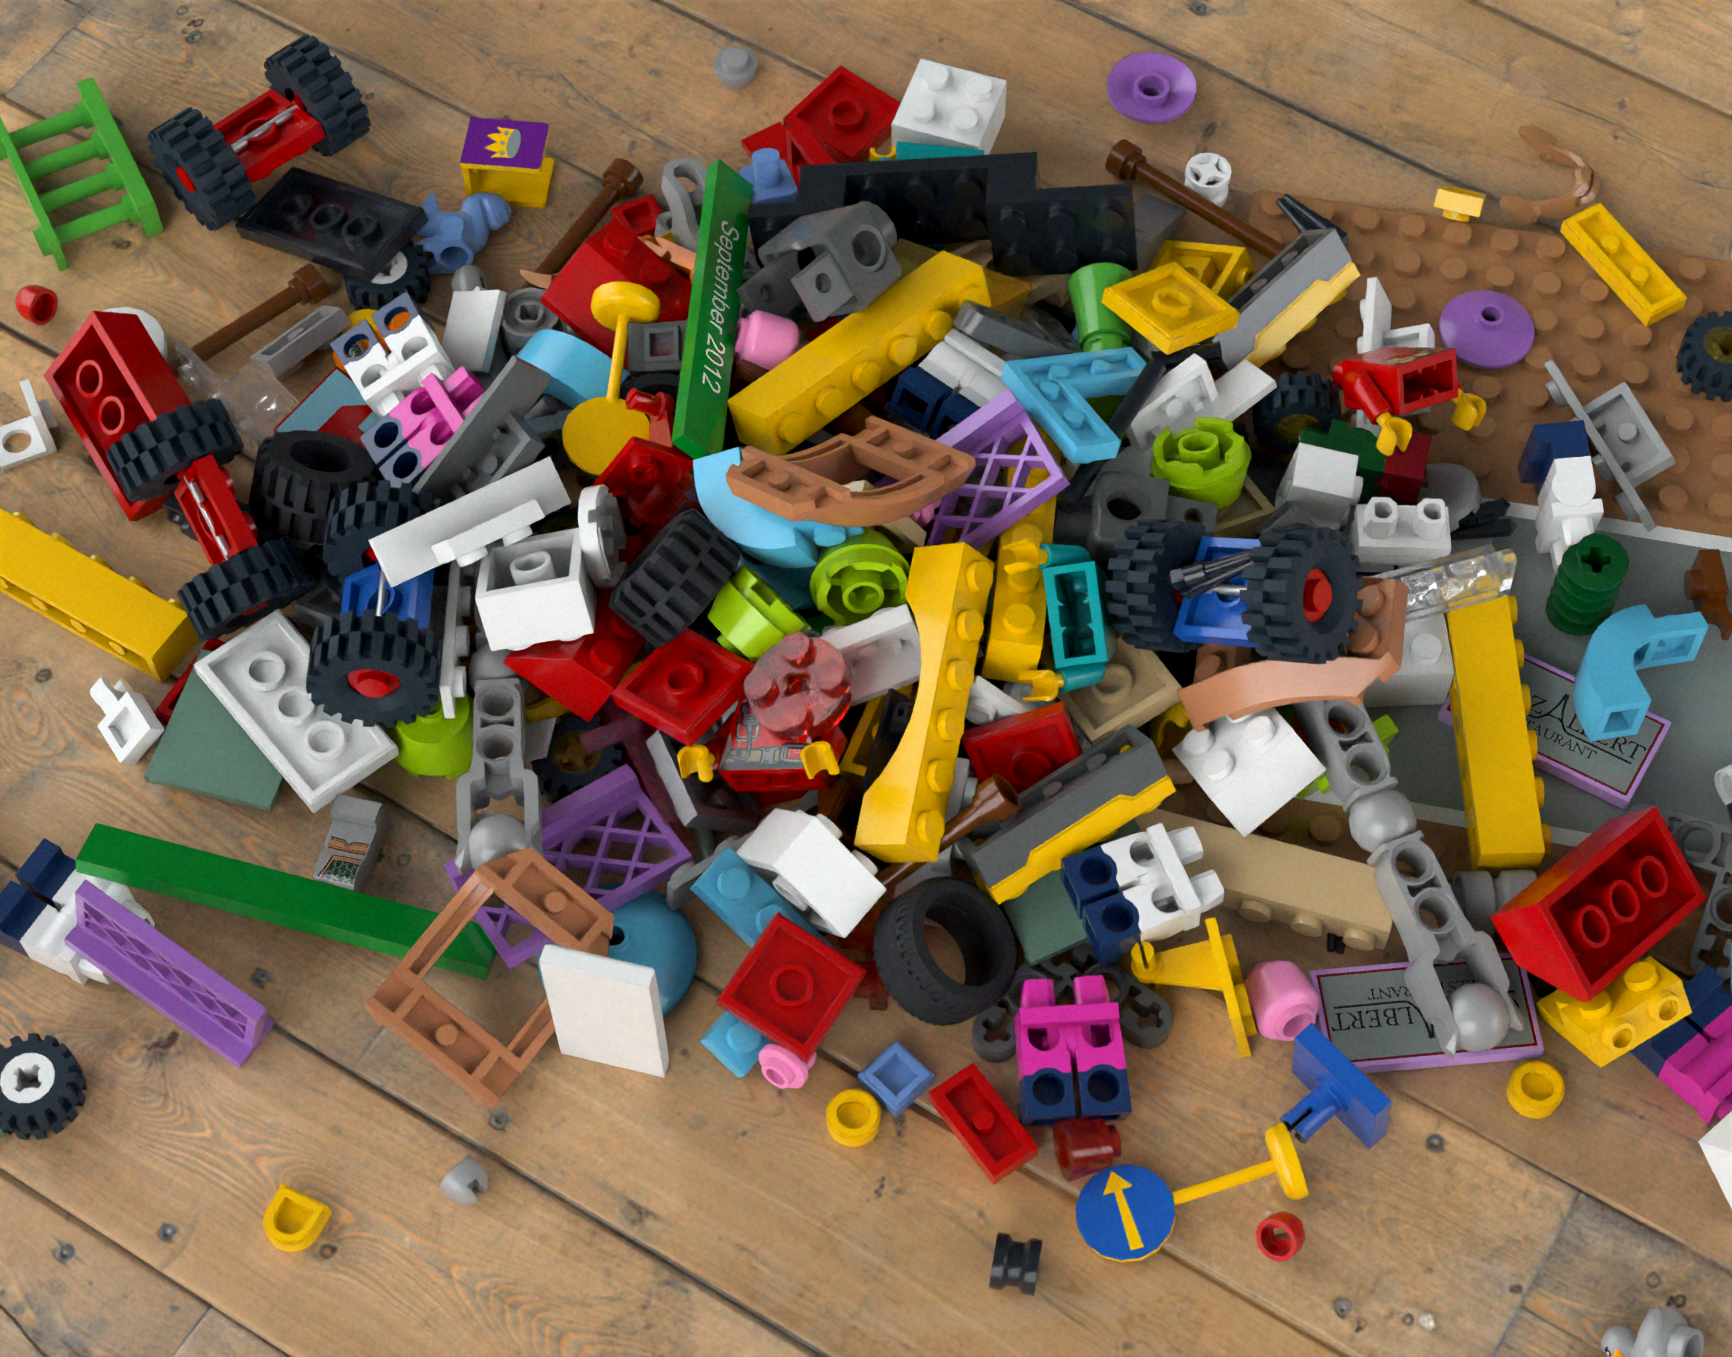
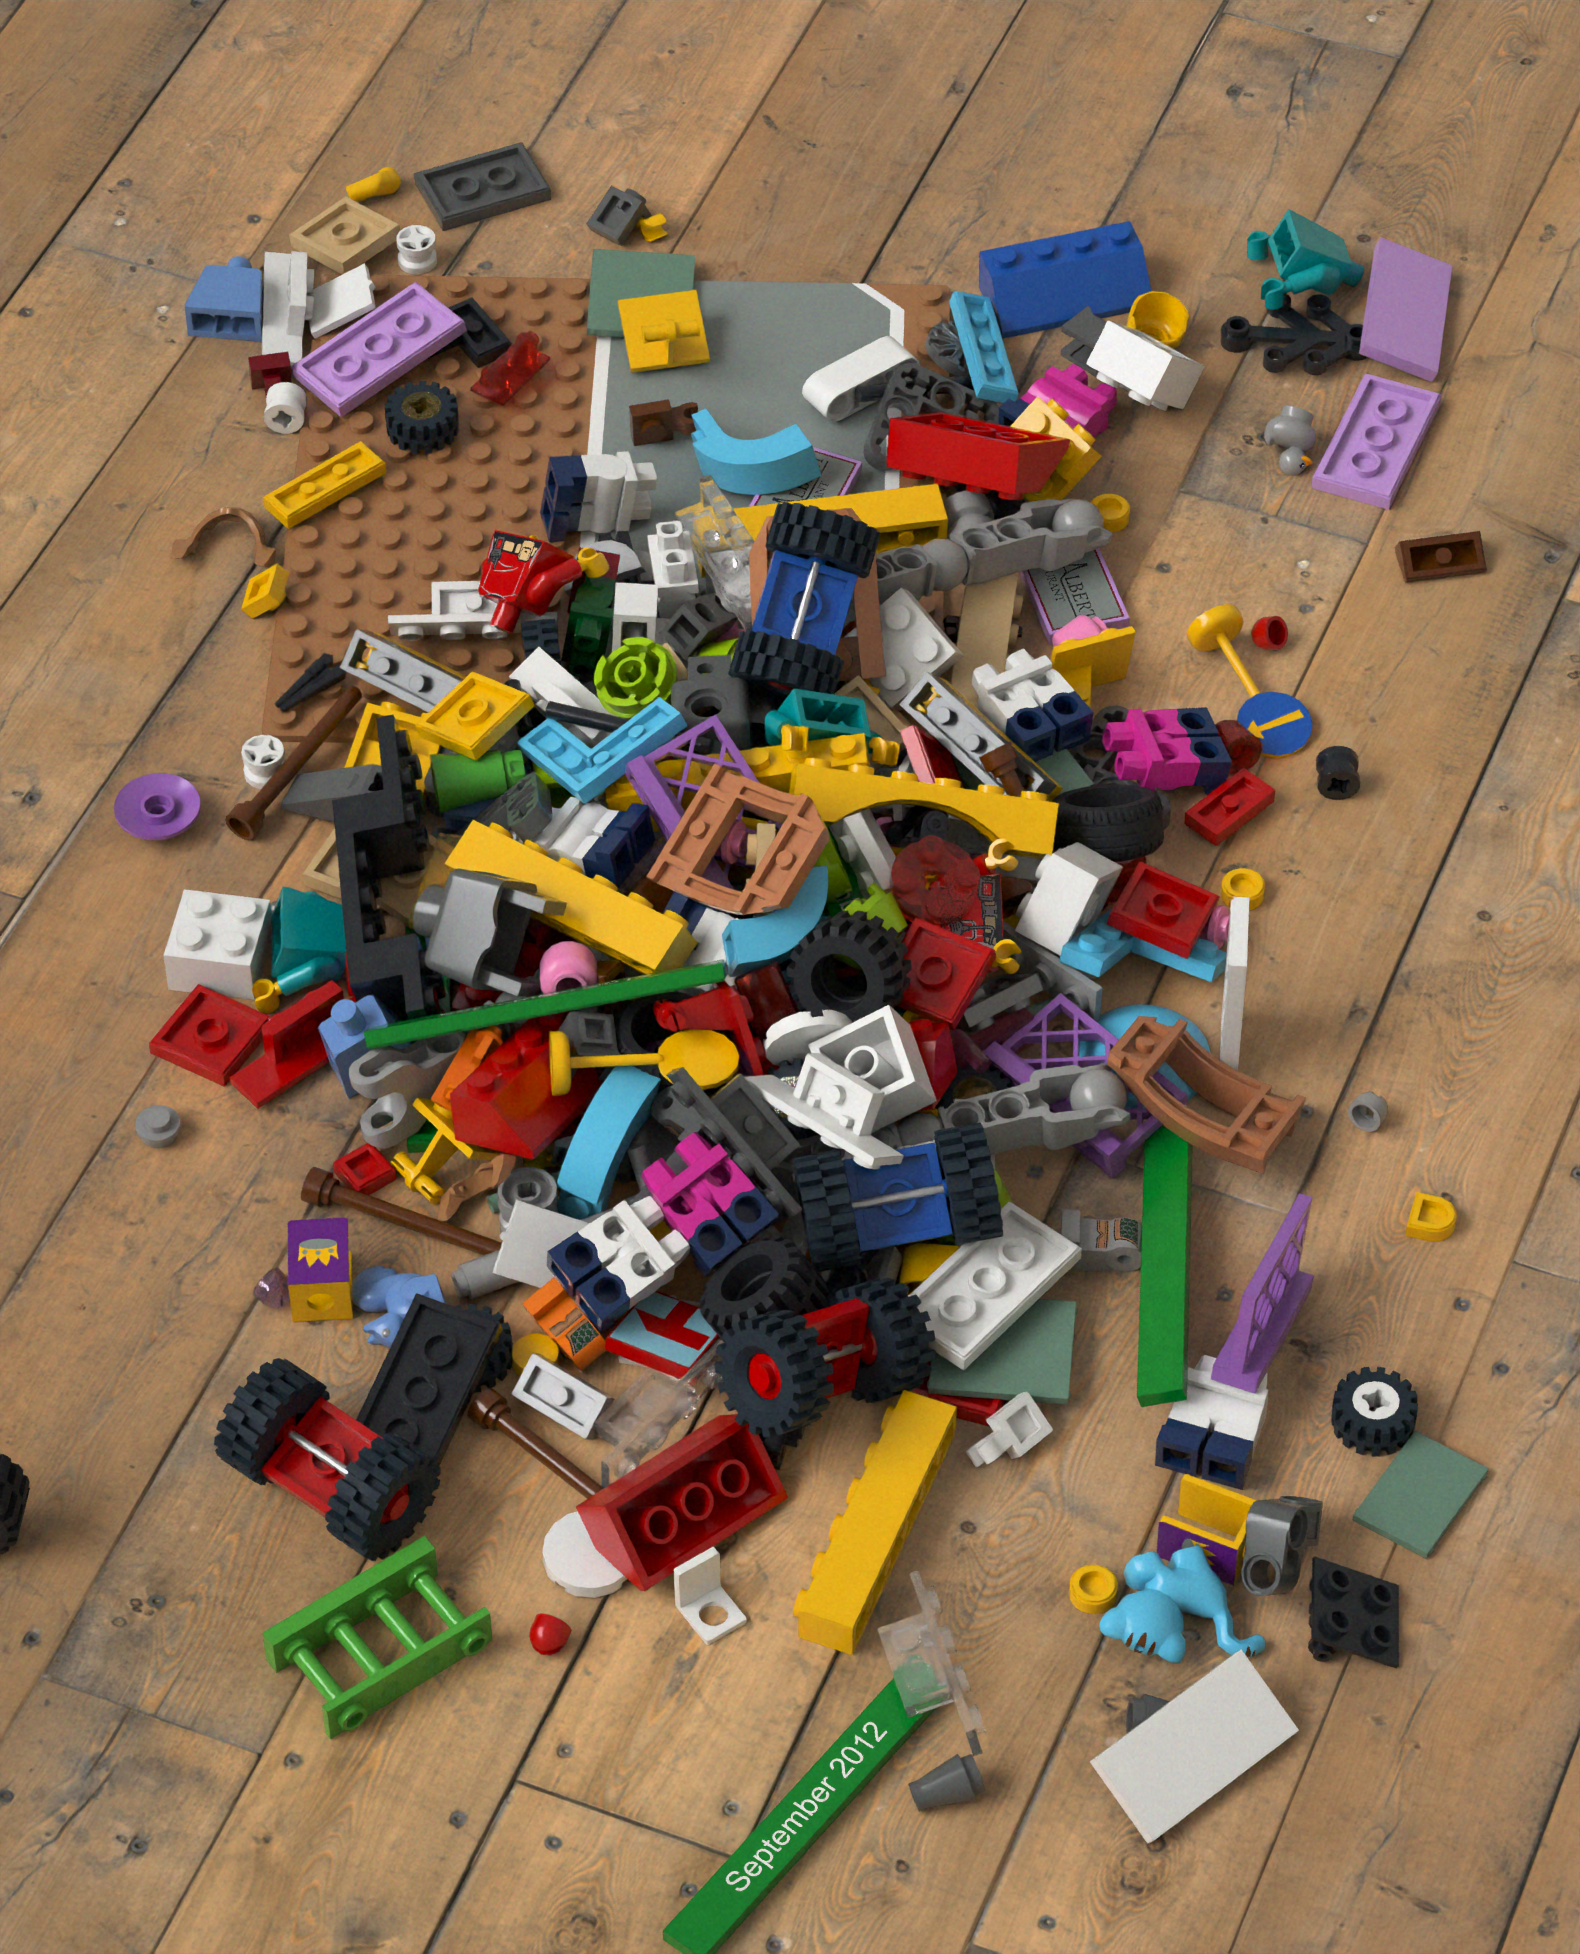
camera: 100 degrees left, 10 degrees down
(896, 1078) = (1203, 867): medium blue tile -> none
(1202, 576) = (798, 615): black piece -> none
(1336, 1090) = (1159, 594): blue tile -> none
(1484, 342) = (406, 568): medium lavender dish -> none
(1587, 584) = (680, 465): dark green piece -> none
(1622, 435) = (510, 477): light grey bracket -> none

